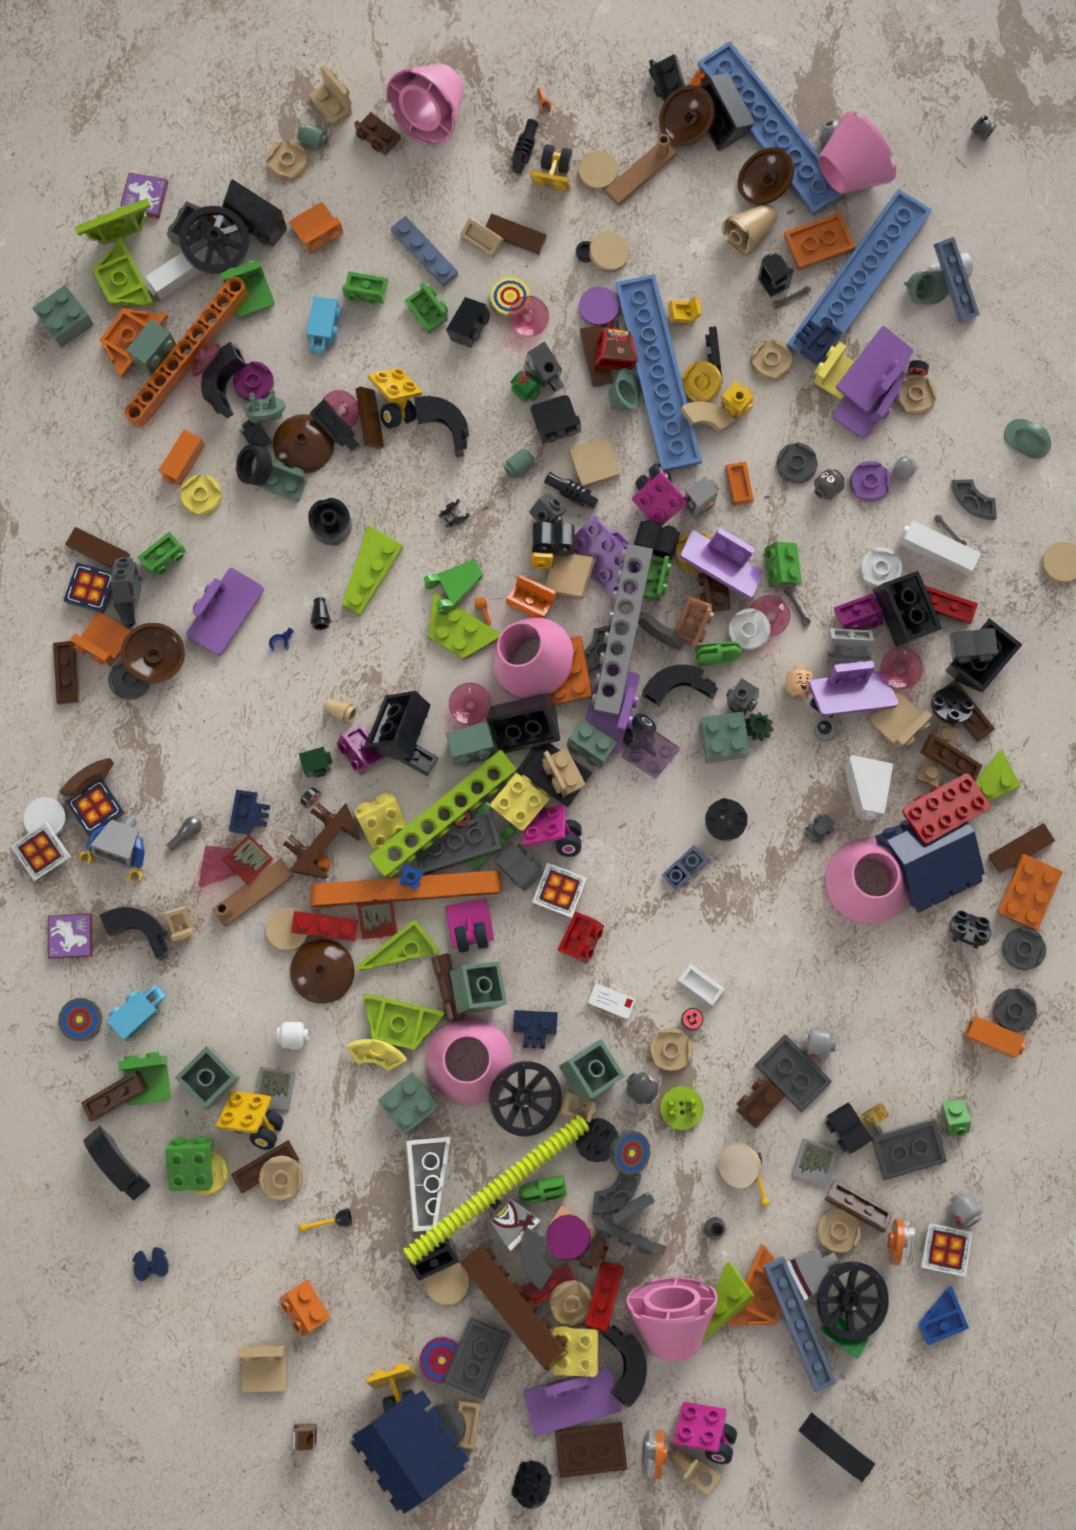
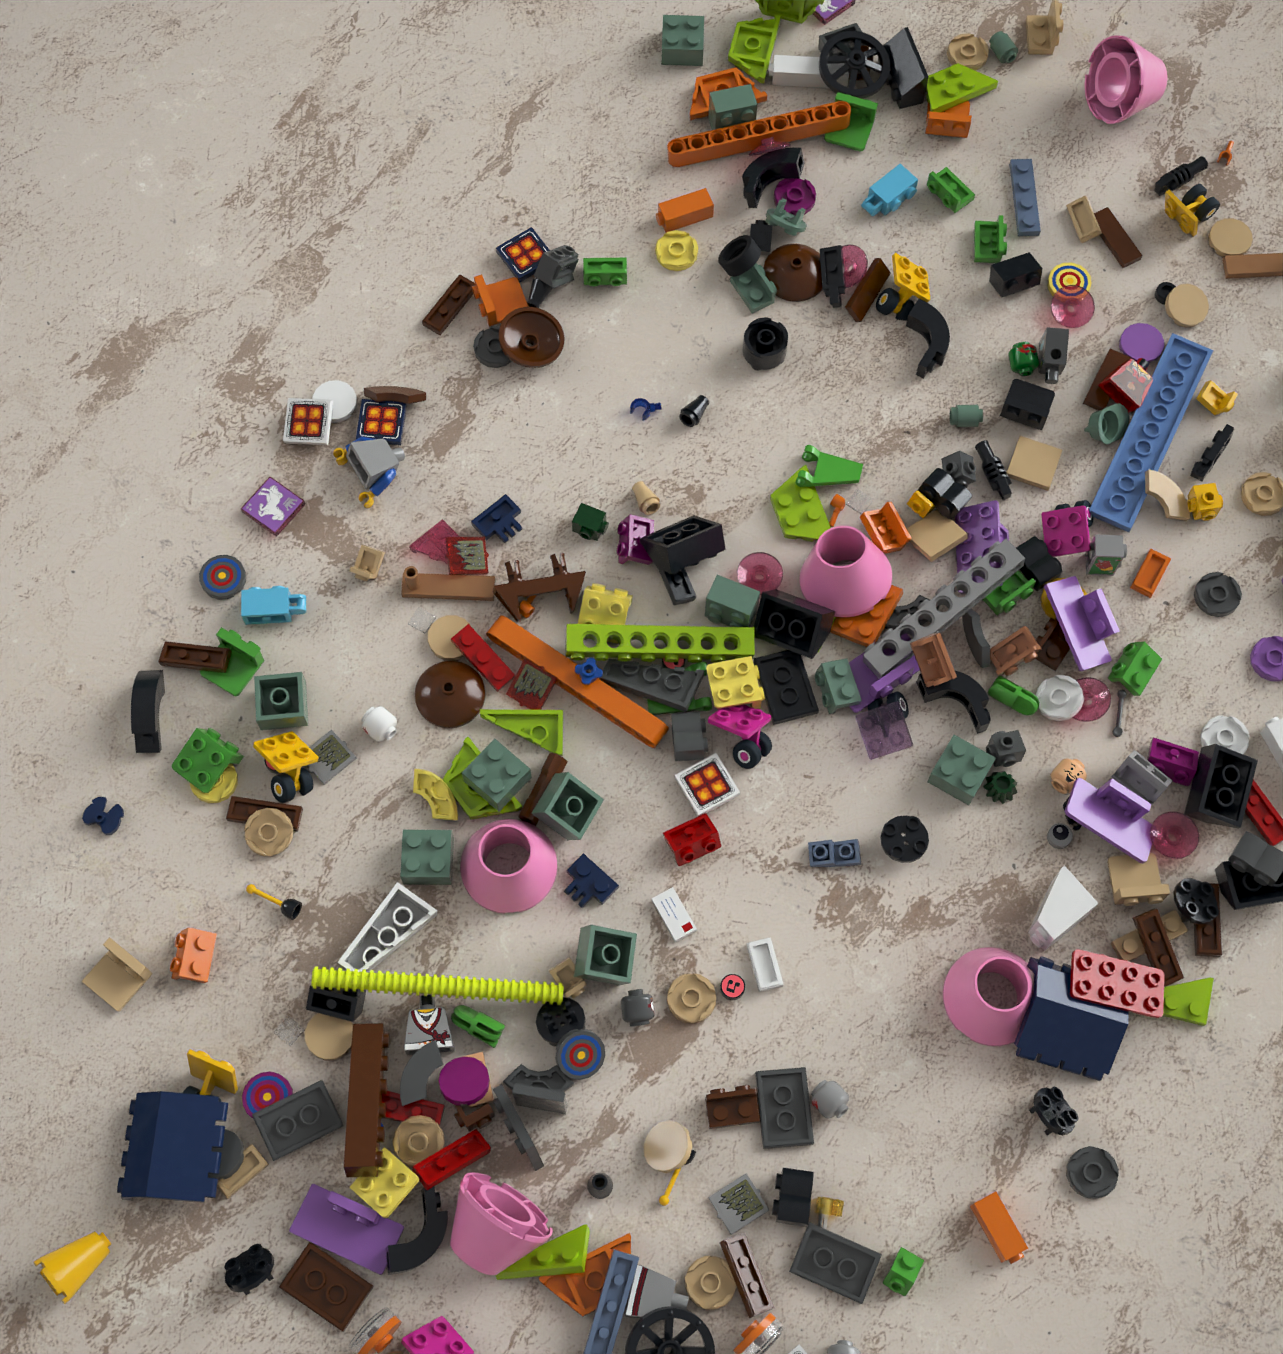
camera: 35 degrees right, 10 degrees down
(94, 547) = (555, 226): reddish brown tile -> none
(128, 918) = (328, 525): black arch -> none
(190, 827) = (442, 496): flat silver piece -> none
(223, 610) = (617, 348): medium lavender bracket -> none
(302, 197) = (956, 86): none -> lime wing
(304, 1436) = (98, 1061): reddish brown leg -> none
(310, 797) = (560, 545): black tile -> none
(371, 566) = (770, 406): lime wing -> none
(377, 133) = (1060, 82): reddish brown bracket -> none
(410, 1006) = (496, 775): none -> sand green brick
(457, 520) = (874, 421): black piece -> none
(469, 924) = (606, 752): dark pink plate -> none
(529, 1098) = (535, 935): black wheel -> none
(564, 772) = (792, 688): tan bracket -> none
(646, 675) = (933, 659): none -> nougat hinge
(691, 1106) = (668, 1061): lime plate -> none
(701, 381) = (1184, 464): yellow tile -> none
(822, 826) = (988, 914): dark grey piece -> none
(829, 484) = (1233, 631): dark grey head -> none
(1014, 1010) = (1039, 1220): dark grey tile -> none
(1026, 844) = (1162, 1080): reddish brown tile -> none
(1029, 892) = (1138, 1124): orange plate -> none

